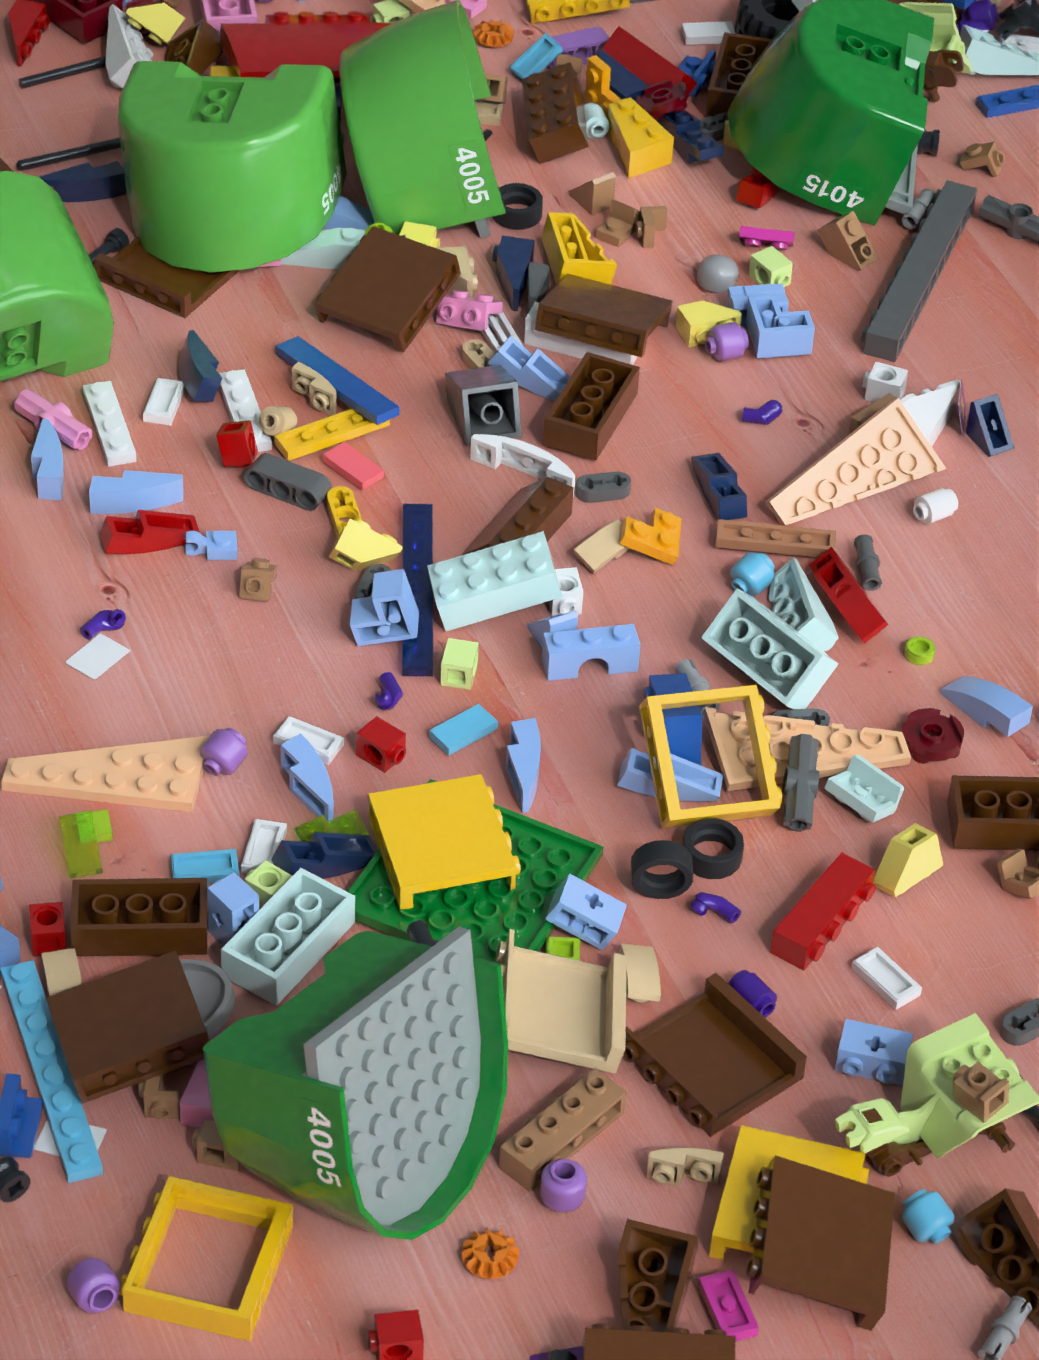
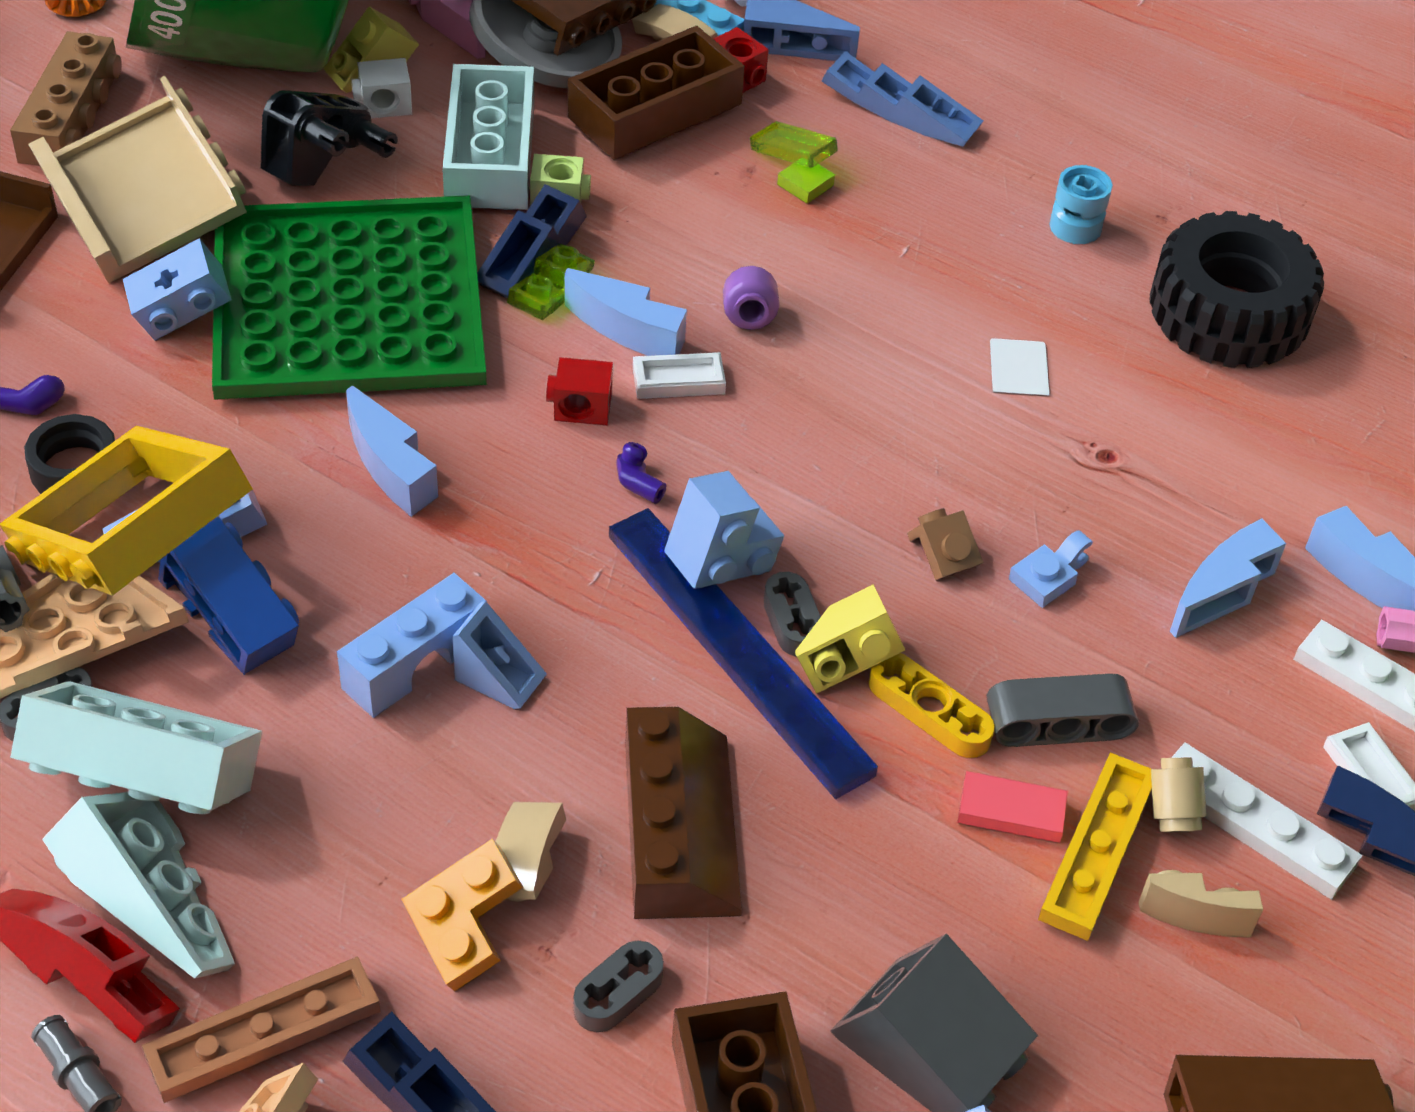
camera: 145 degrees right, 5 degrees up
(103, 621) = (1056, 398): dark purple arm -> none
(135, 774) = (844, 241): light nougat wing -> none
(146, 533) = (1141, 532): red slope -> none
(205, 864) = (653, 193): medium azure tile -> none
(230, 907) = (563, 117): light blue brick -> none
(237, 443) = (1183, 711): red brick -> none
(262, 843) = (612, 239): white tile -> none
(347, 385) = (1188, 936): blue tile -> none
(441, 836) = (397, 276): yellow panel -> none
(459, 663) = (579, 543): yellowish green brick -> none
(463, 729) = (505, 474): medium azure tile -> none
(494, 581) = (617, 655): light aqua brick -> none
(522, 456) = (765, 956): white slope -> none
(563, 1185) = (28, 44): medium lavender head -> none
(571, 592) = (525, 730): white brick -> none
(641, 973) = (78, 276): tan slope -> none
(662, 885) = (97, 352): black tyre -> none
(696, 681) = (230, 679): light grey pin -> none
(752, 573) = (258, 919): medium azure head -> none

